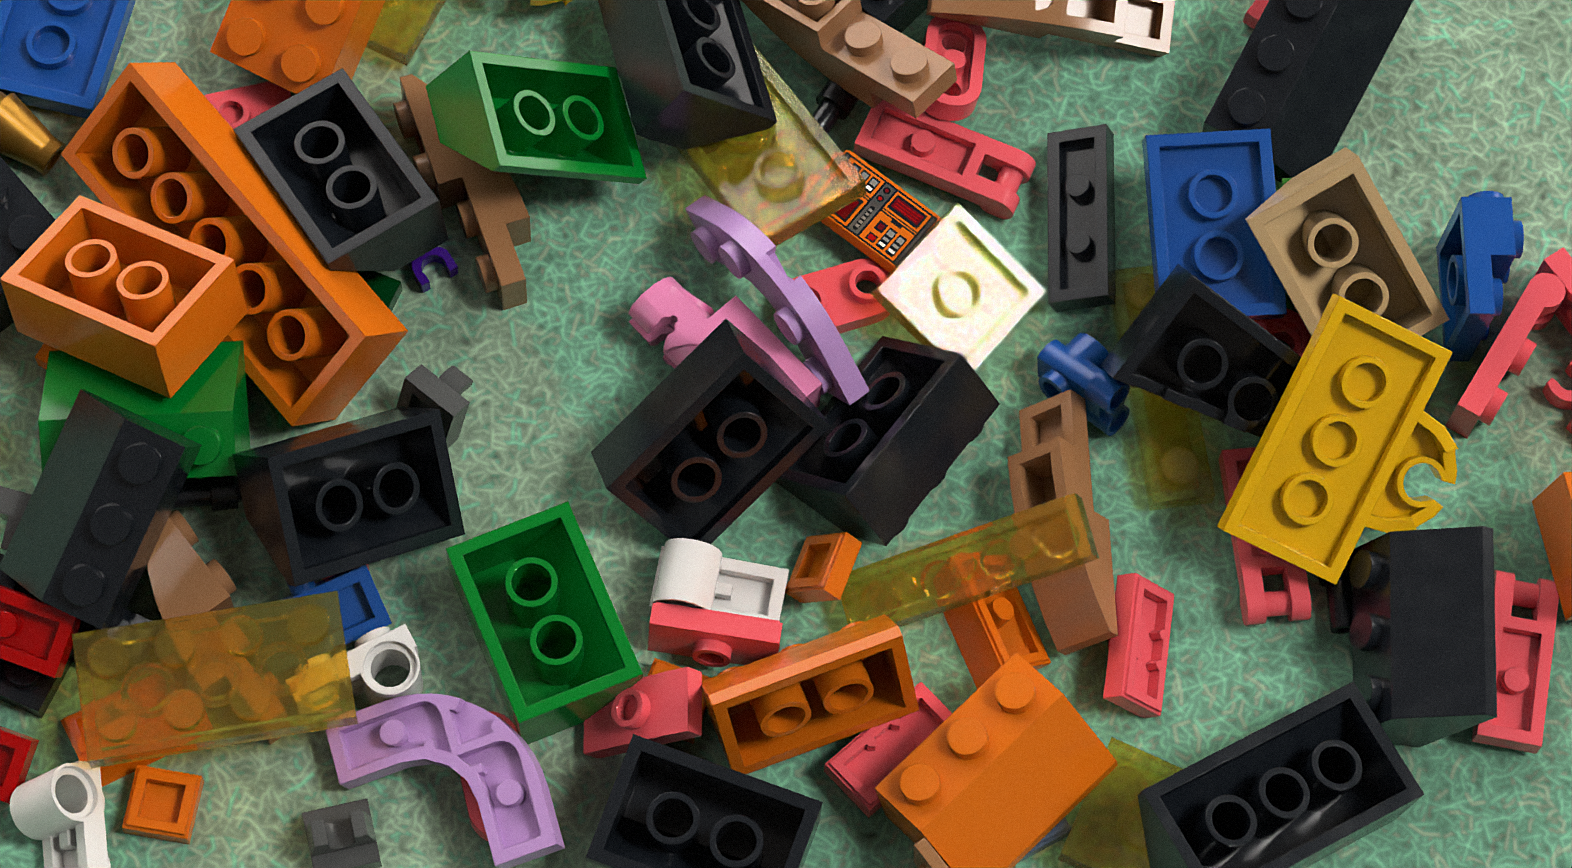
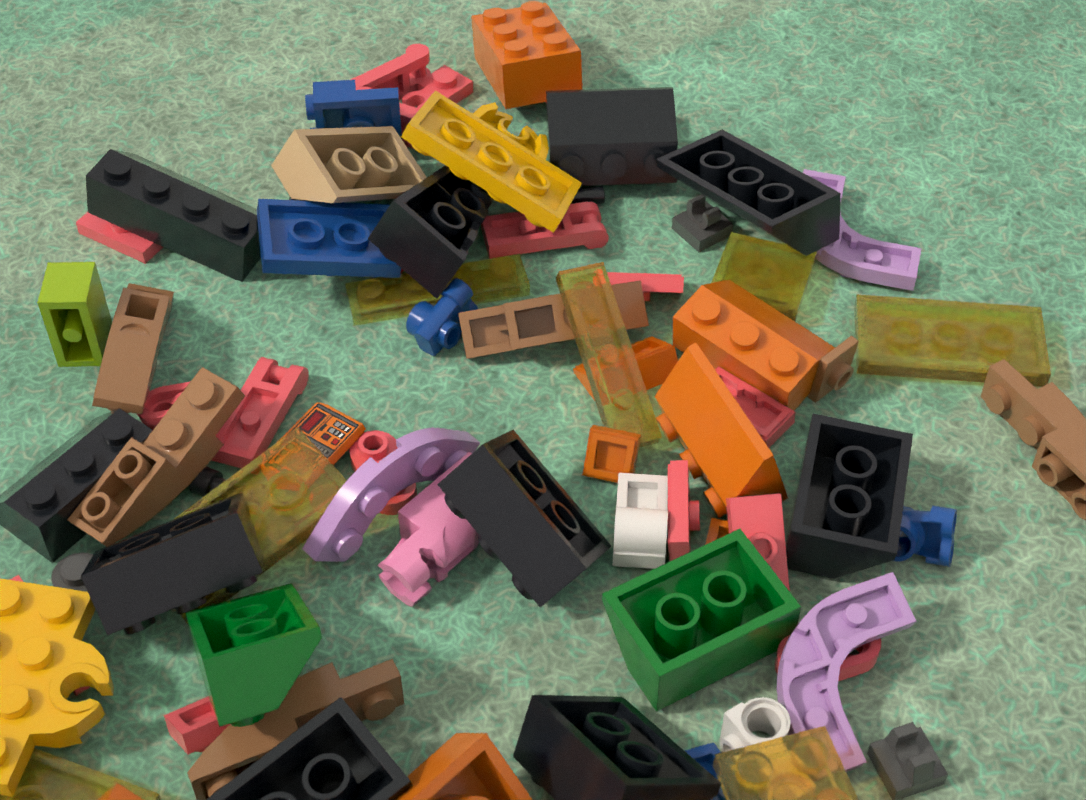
camera: 90 degrees left, 20 degrees down
(426, 390) = (504, 723): dark grey tile -> none
(893, 440) = (491, 403): black slope -> none
(958, 288) = (378, 389): clear yellow plate -> none
(1081, 218) = (311, 328): black plate -> none

